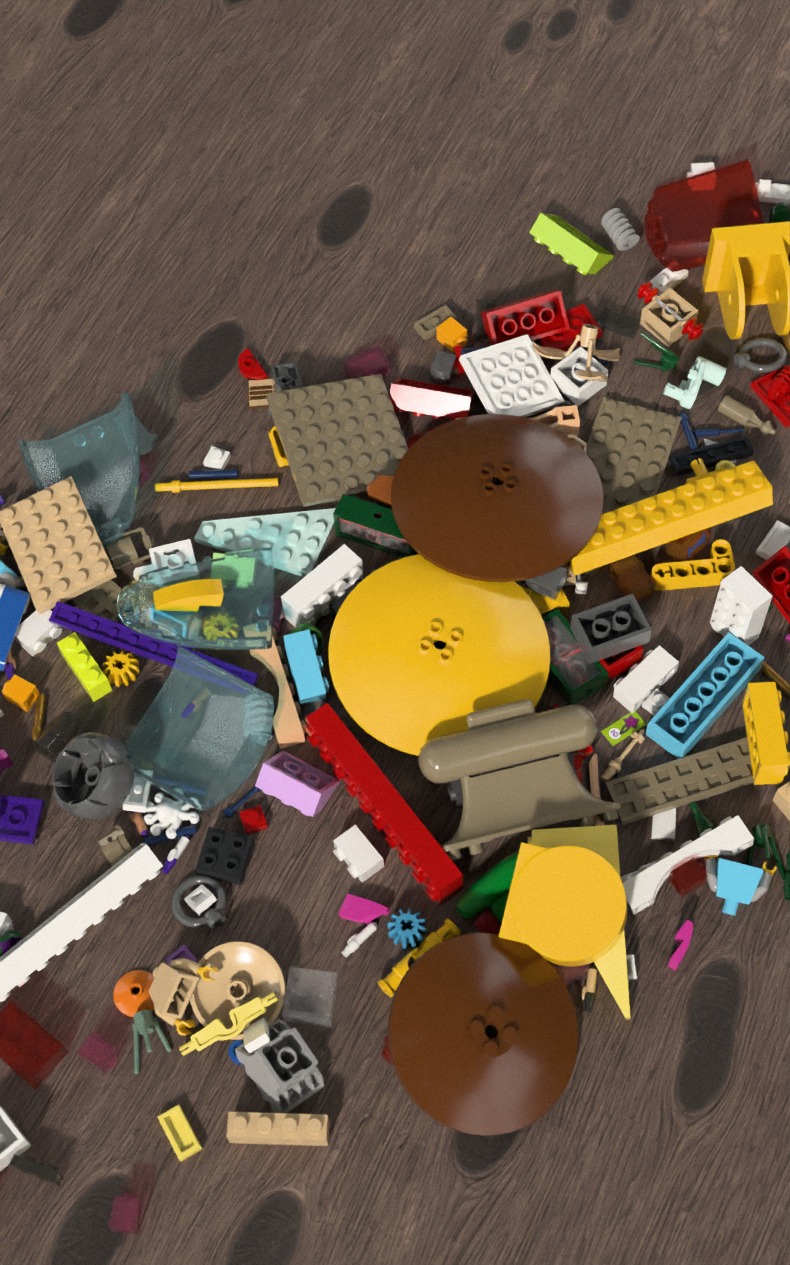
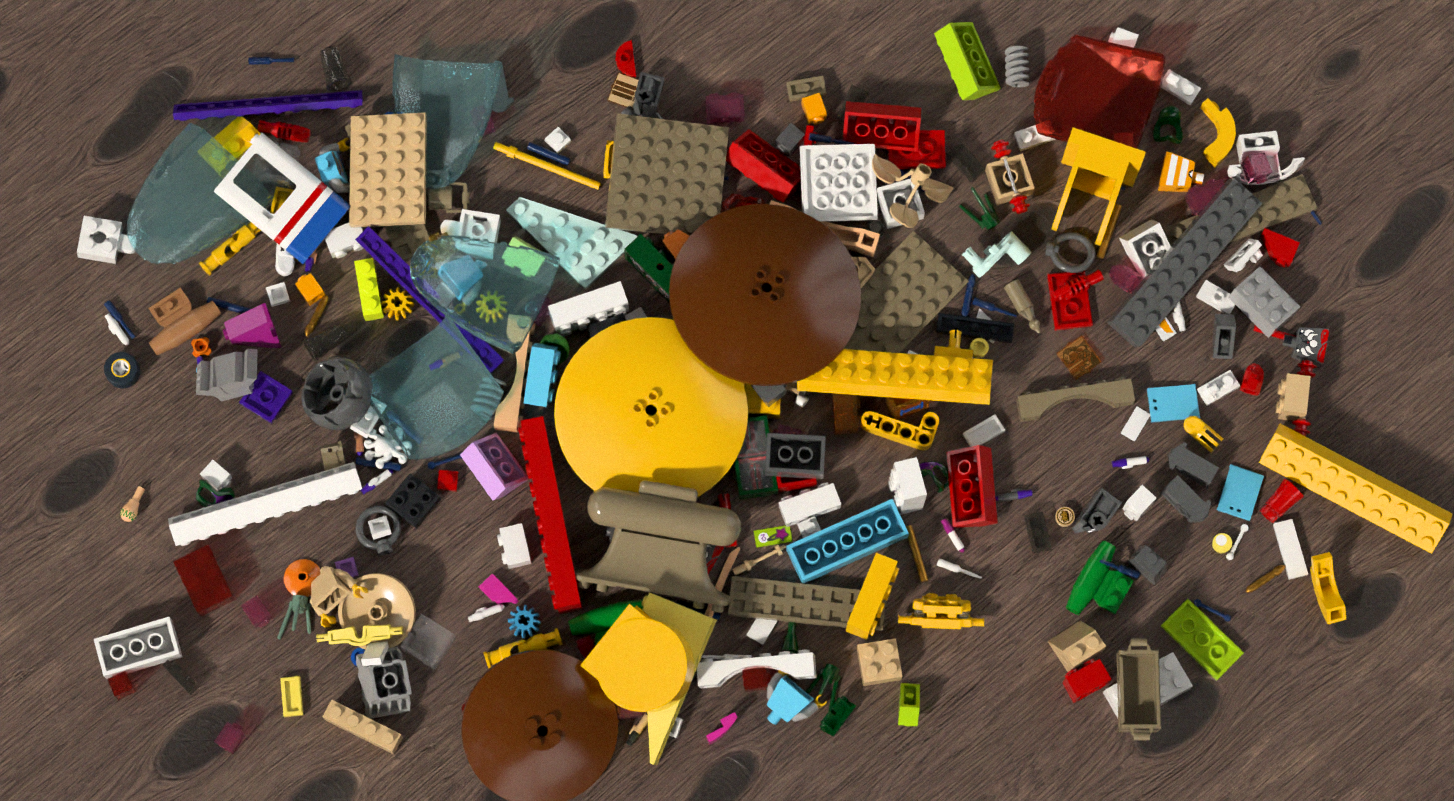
camera: 20 degrees right, 15 degrees up
(189, 595) = (475, 270): yellow slope -> none

